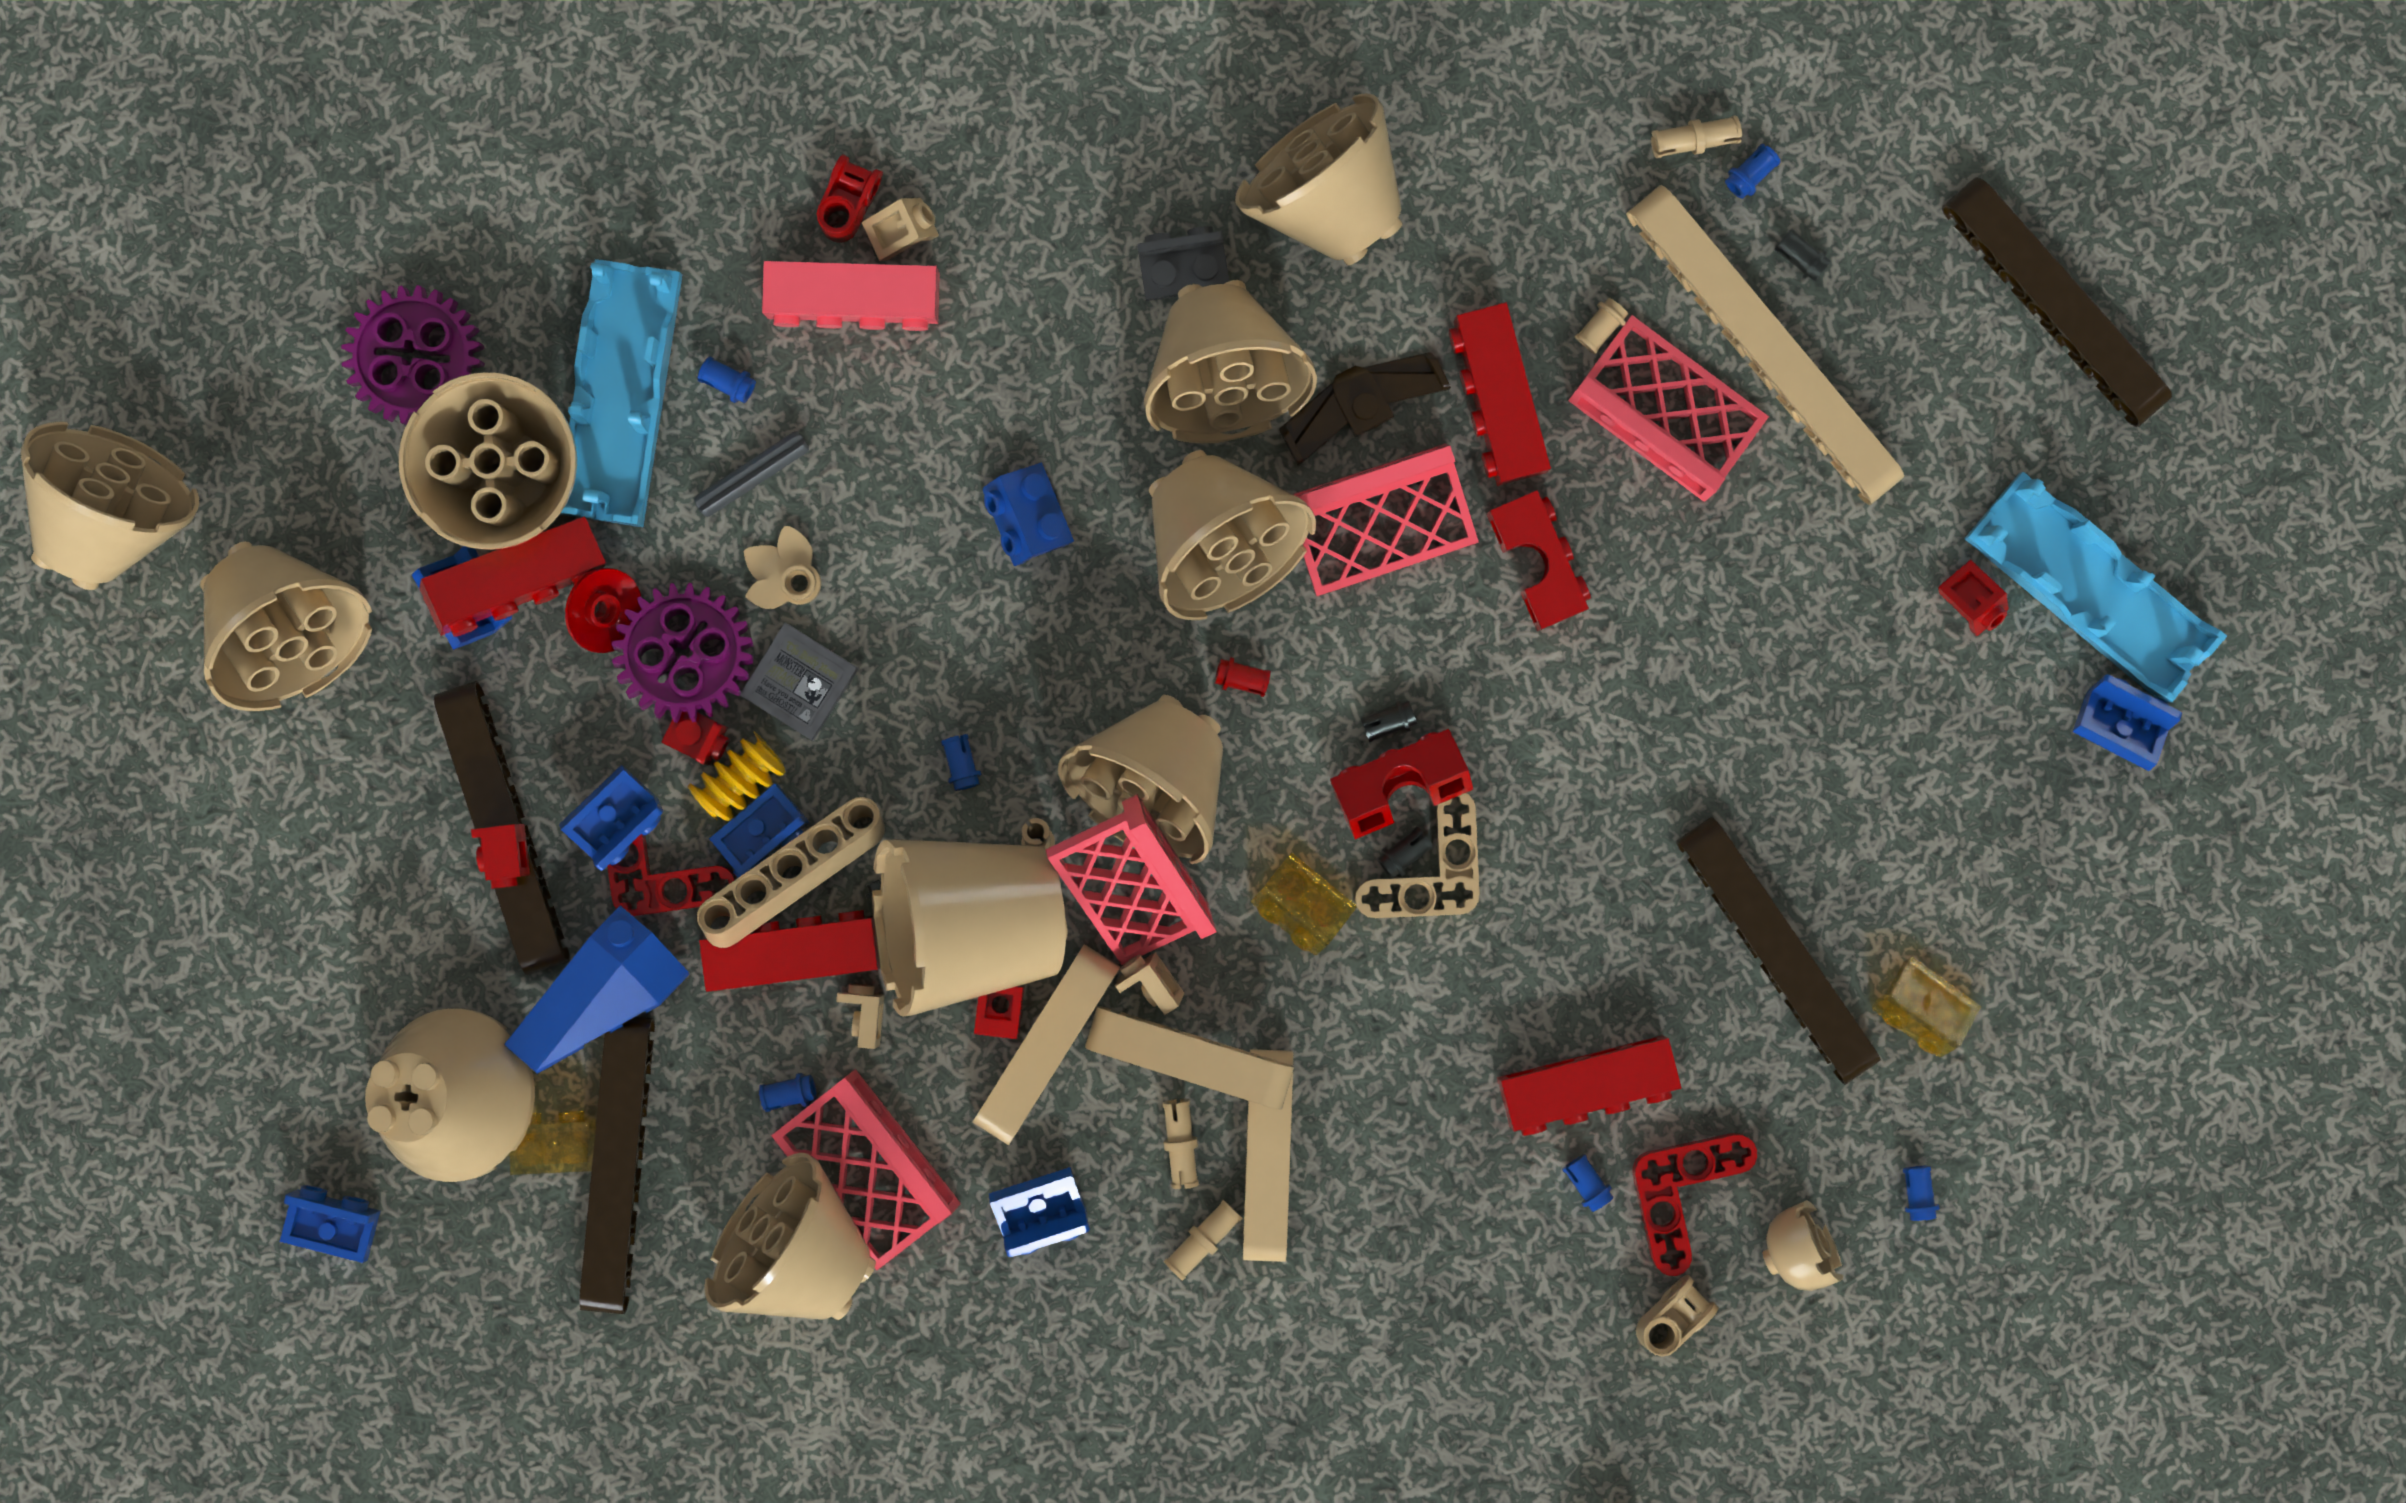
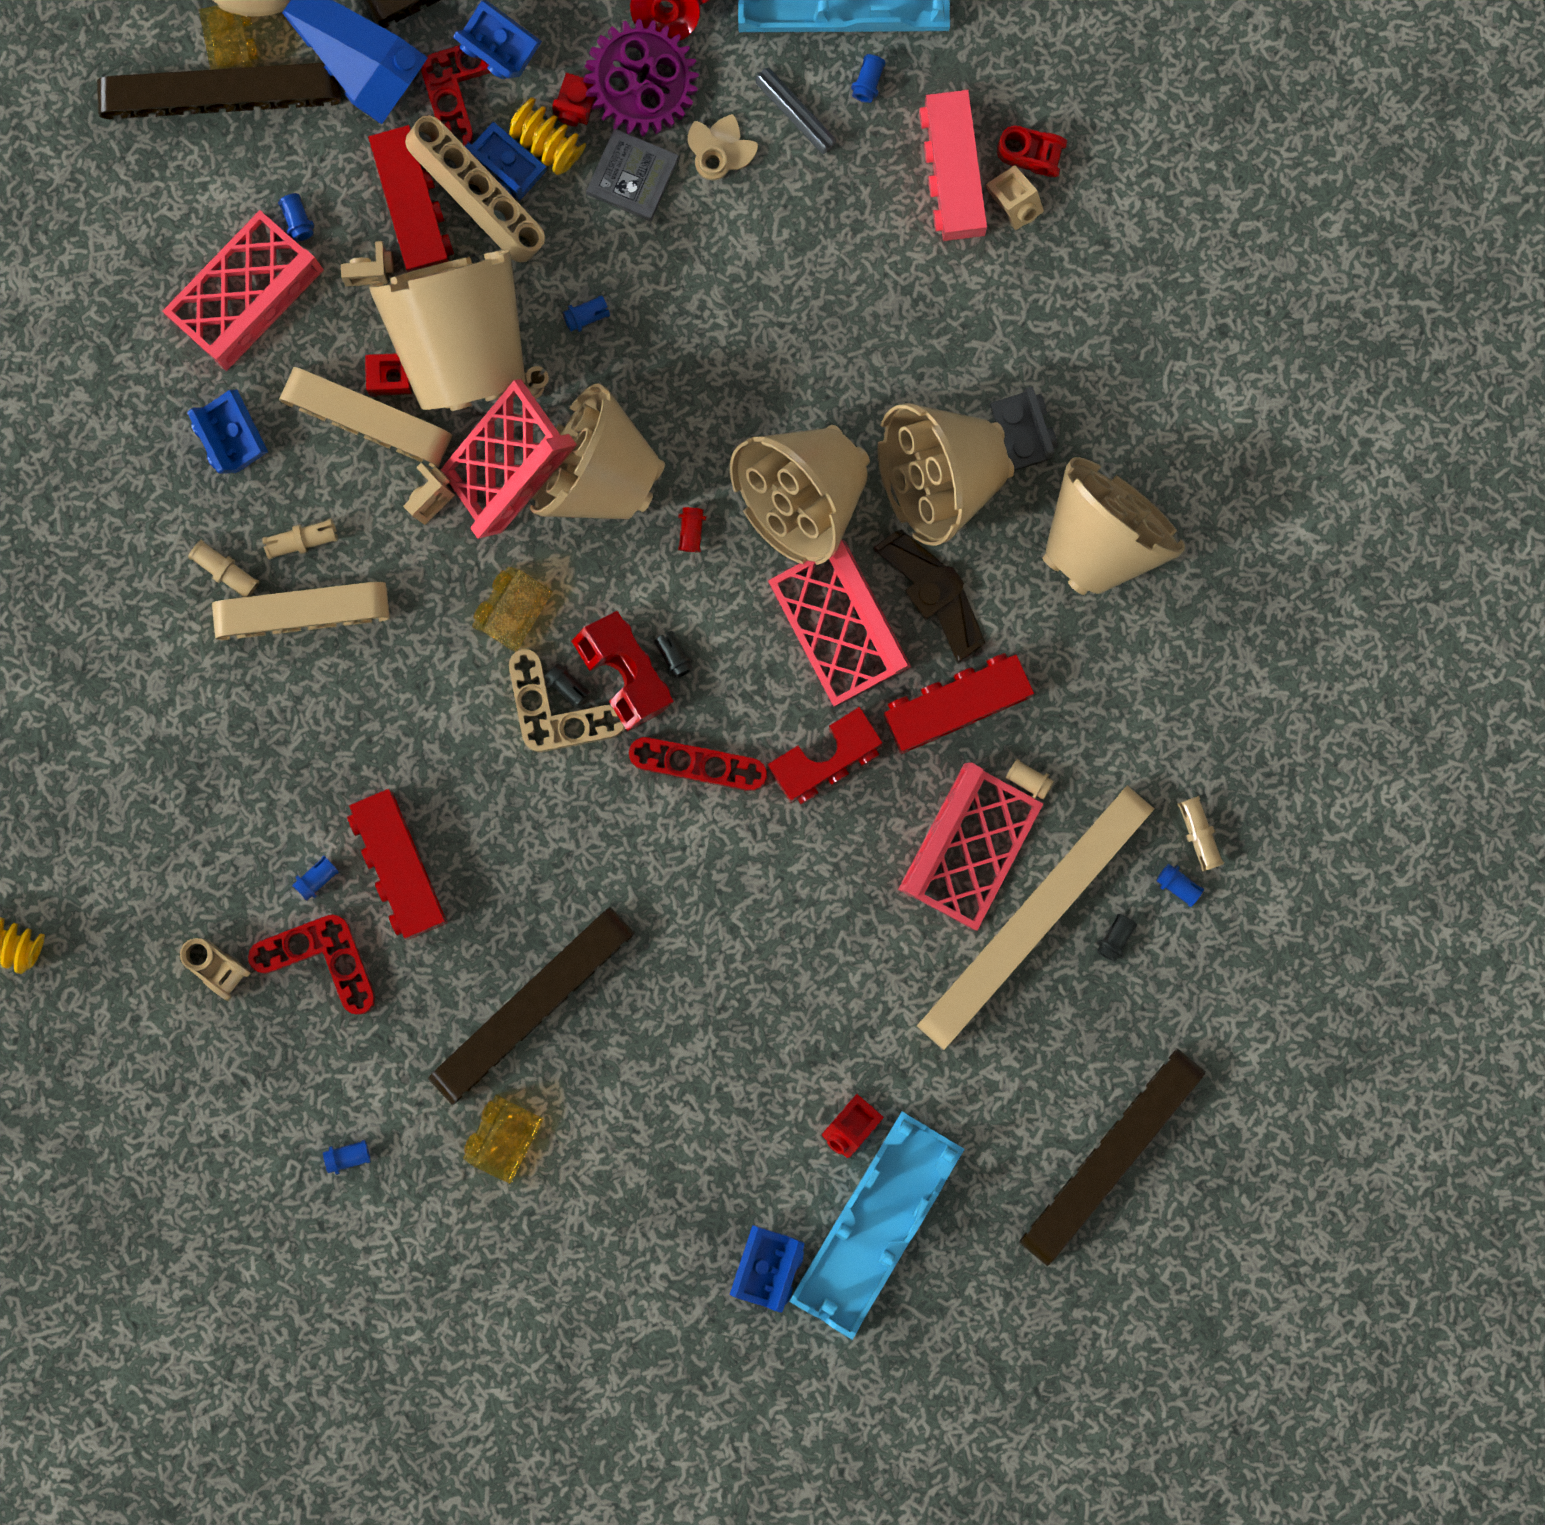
camera: 85 degrees right, 5 degrees down
(790, 1249) = (167, 236): tan cone -> none
(1026, 513) = (798, 335): blue bracket -> none
(1189, 1057) = (371, 532): tan beam -> none
(1527, 714) = (696, 769): none -> red beam
(1801, 1250) = (284, 1061): tan cylinder -> none

